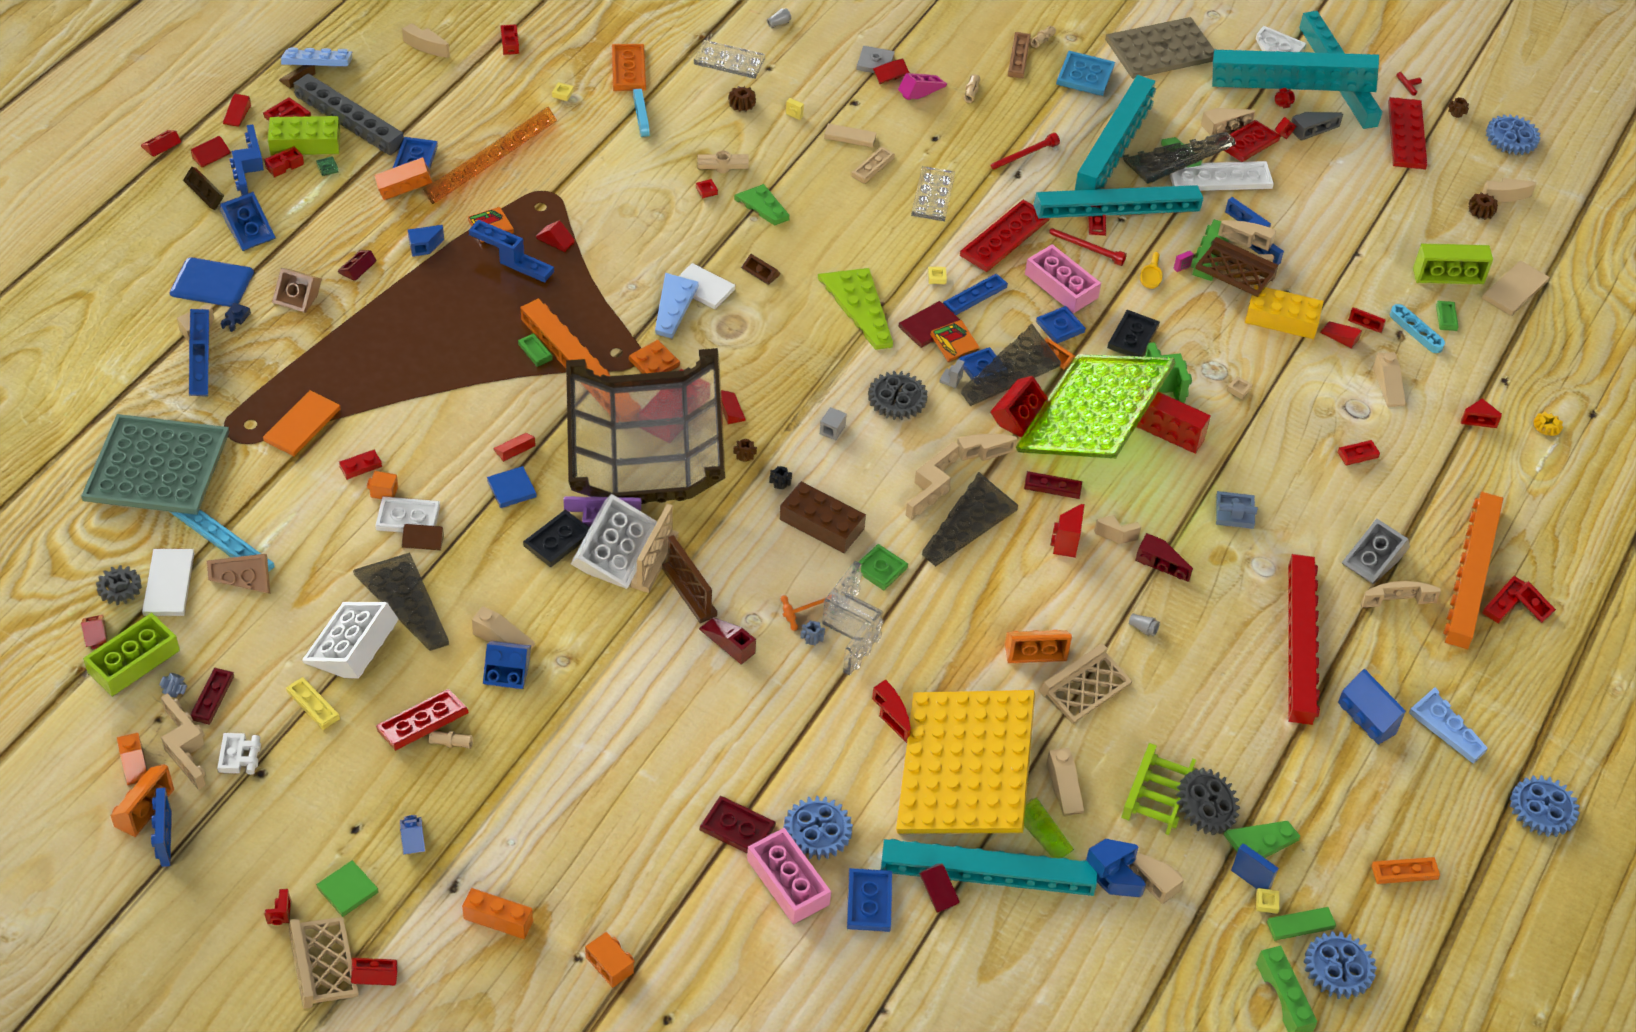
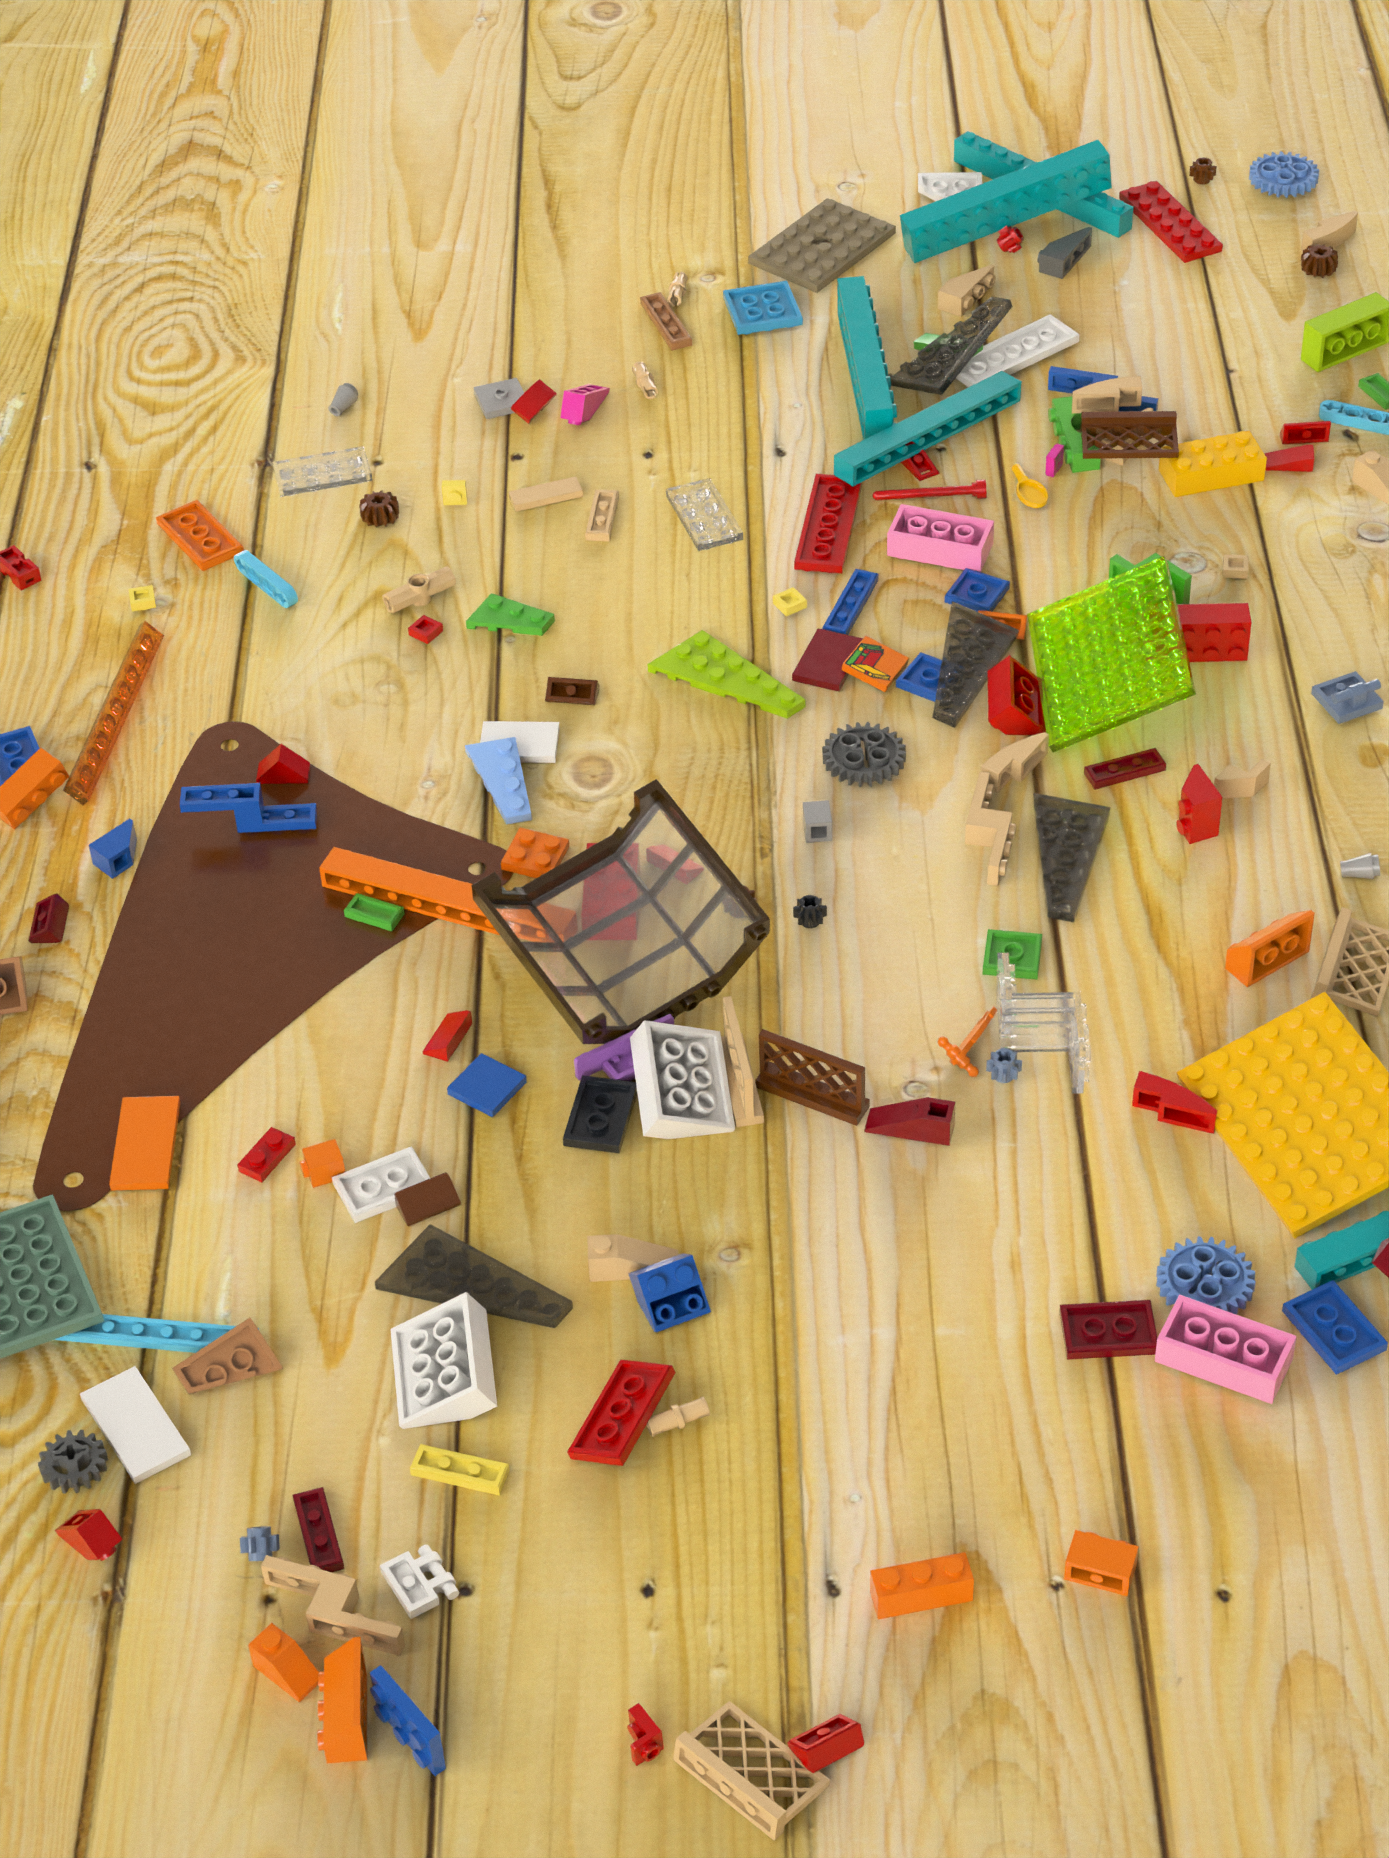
camera: 25 degrees left, 5 degrees down
(131, 654) = (171, 1535): lime brick -> none
(347, 888) = (703, 1664): bright green tile -> none
(412, 834) = (732, 1553): slope -> none
(493, 217) = (168, 794): tile -> none
(822, 517) = (900, 931): reddish brown brick -> none
(953, 375) = (910, 703): light grey bracket -> none
(1051, 141) = (788, 397): red piece -> none
(1133, 334) = (1069, 563): black plate -> none
(1161, 556) = (1317, 785): dark red slope -> none
(1252, 140) = (1022, 296): red tile -> none
(1285, 128) = (1037, 270): red bracket -> none
(1409, 83) = (1127, 169): red piece -> none

